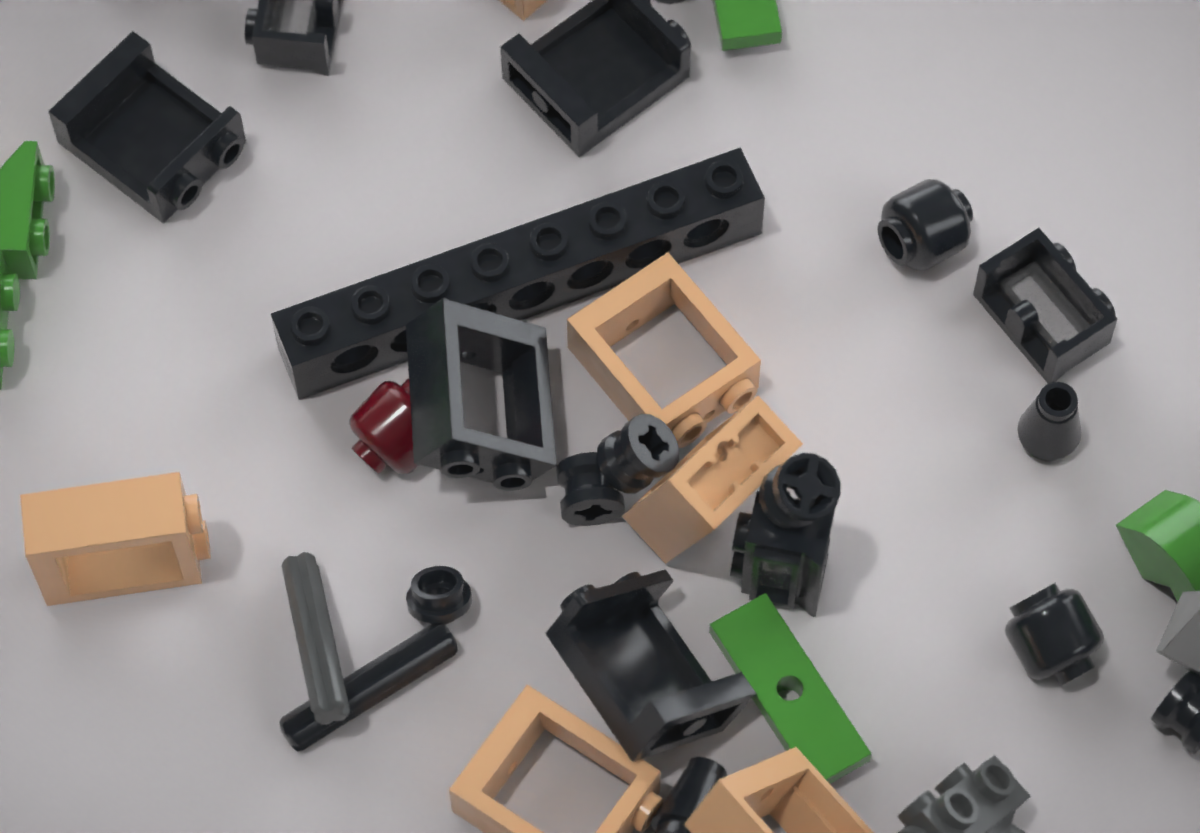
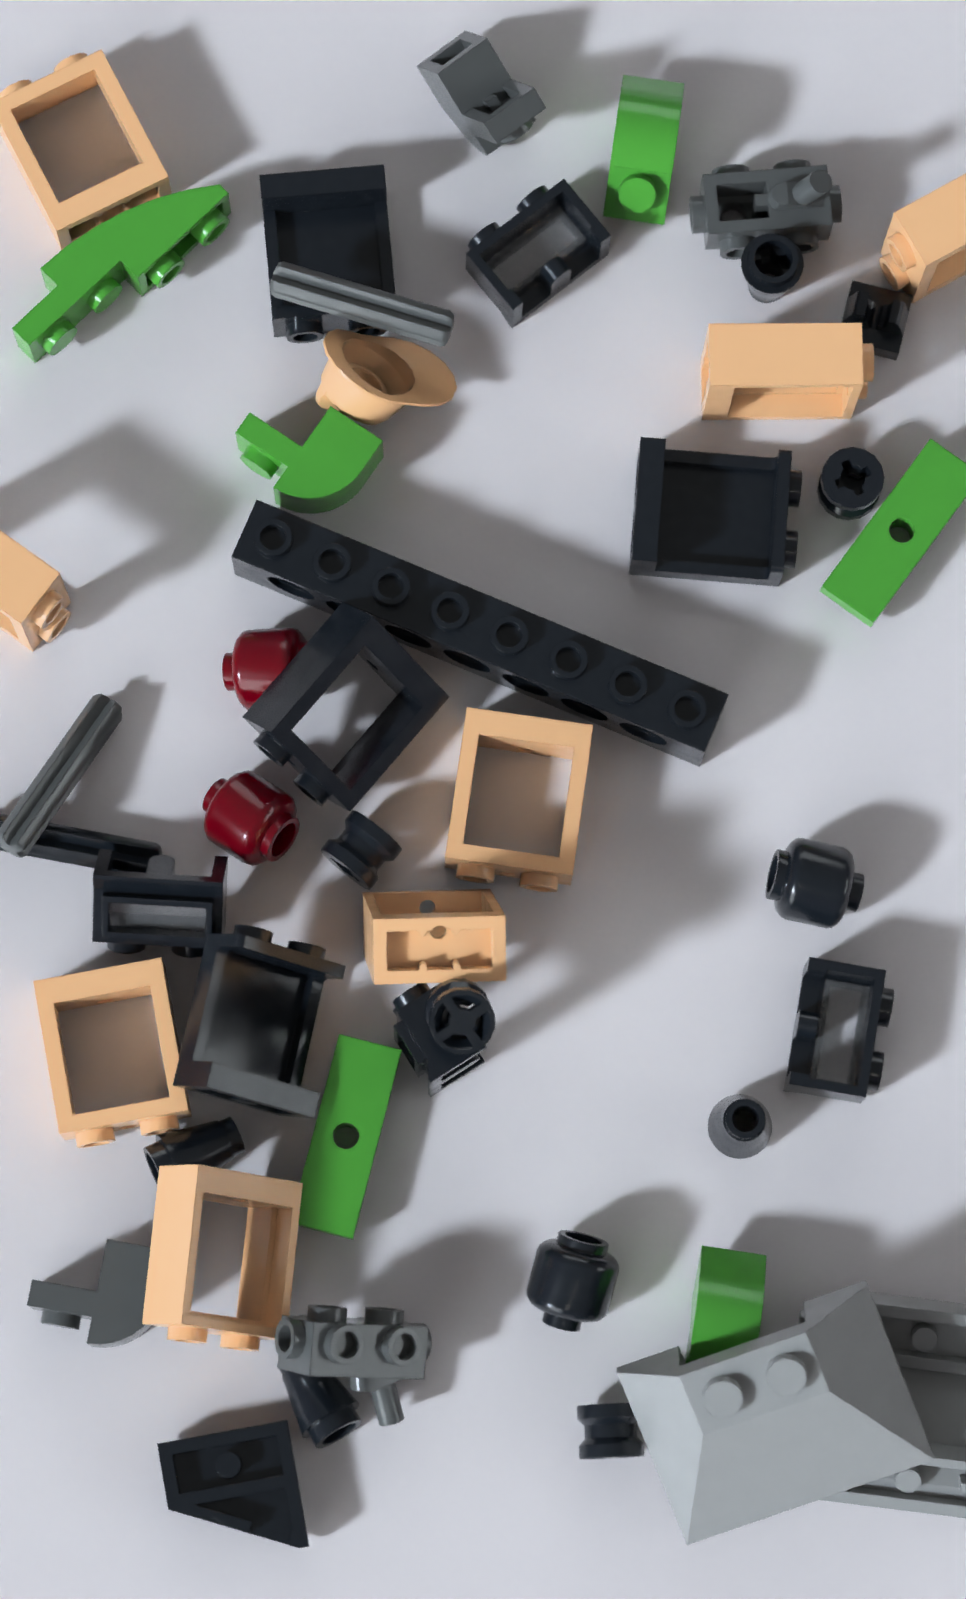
camera: 40 degrees right, 15 degrees up
(212, 124) = (362, 303): none -> dark grey axle
(271, 177) = (380, 375): none -> light nougat piece
(290, 272) = (322, 471): none -> bright green brick
(438, 595) = (178, 813): black plate -> none
(484, 656) = (157, 906): none -> black window
(487, 539) = (250, 818): none -> dark red head
(637, 453) = (393, 865): black wheel -> none

